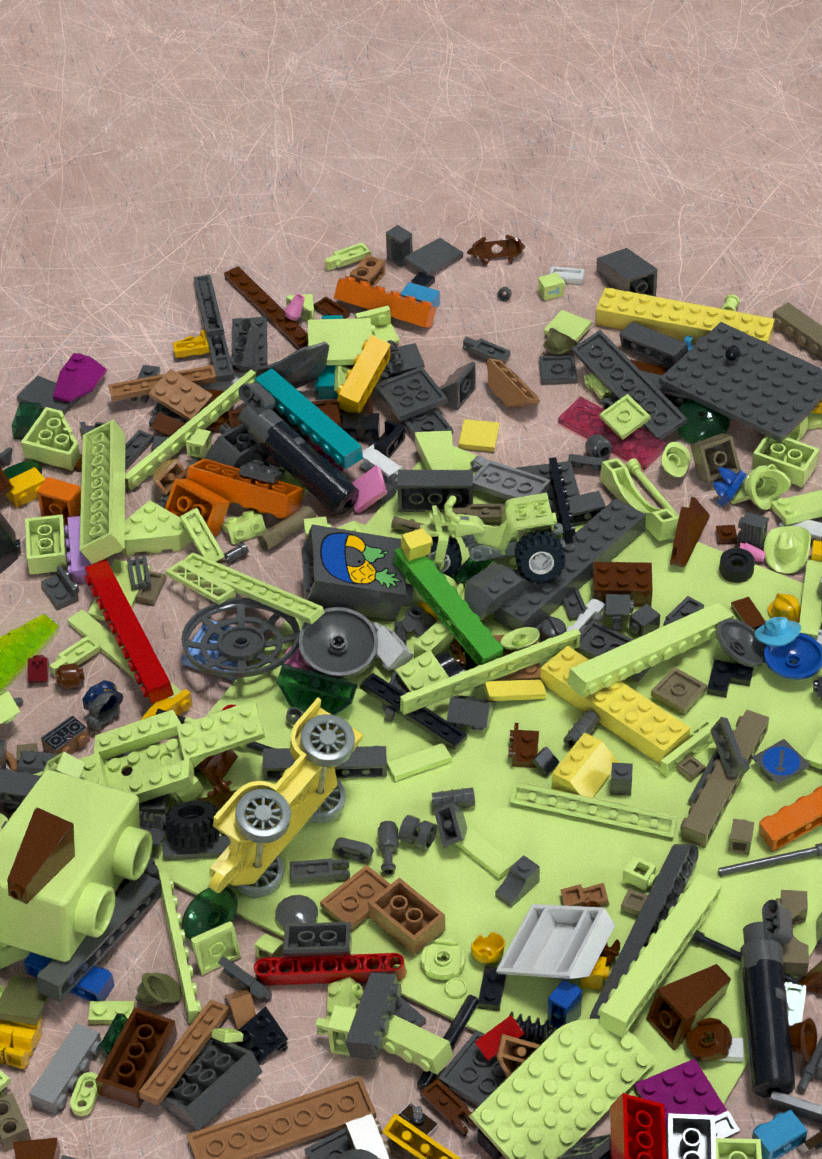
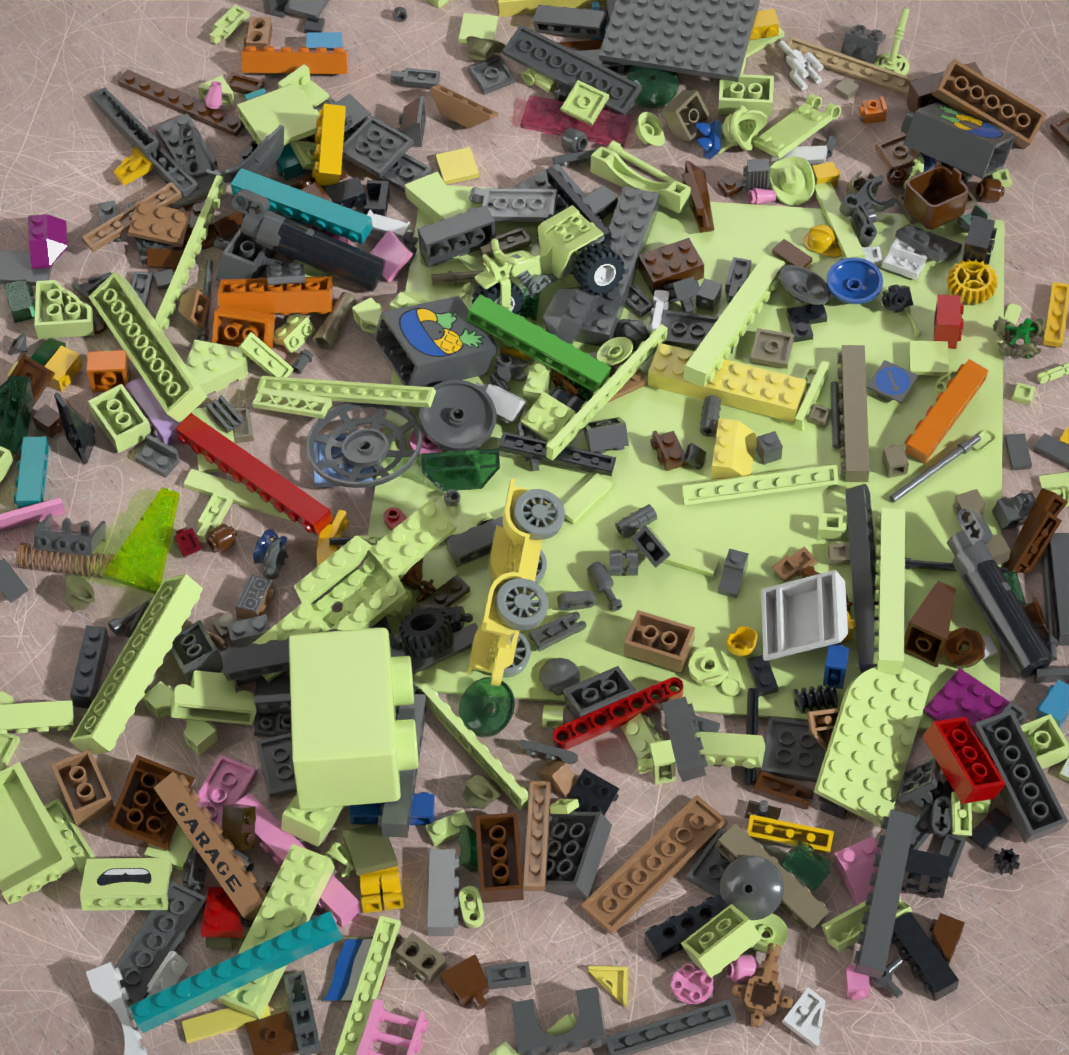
camera: 25 degrees left, 10 degrees up
(41, 856) = (352, 713): reddish brown slope -> none
(66, 764) = (285, 625): yellowish green slope -> none
(199, 443) = (205, 266): yellowish green brick -> none
(215, 944) = (510, 733): yellowish green plate -> none
(351, 898) = (604, 641): medium nougat plate -> none
(416, 544) = (487, 297): light yellow brick -> none
(490, 1041) = (797, 715): red tile -> none
(514, 690) = (632, 400): light yellow tile -> none
(728, 748) = (848, 386): dark grey hinge -> none
(732, 353) = (654, 8): black hinge -> none
(736, 556) = (755, 221): black tyre -> none
(778, 631) = (830, 263): medium azure hat -> none

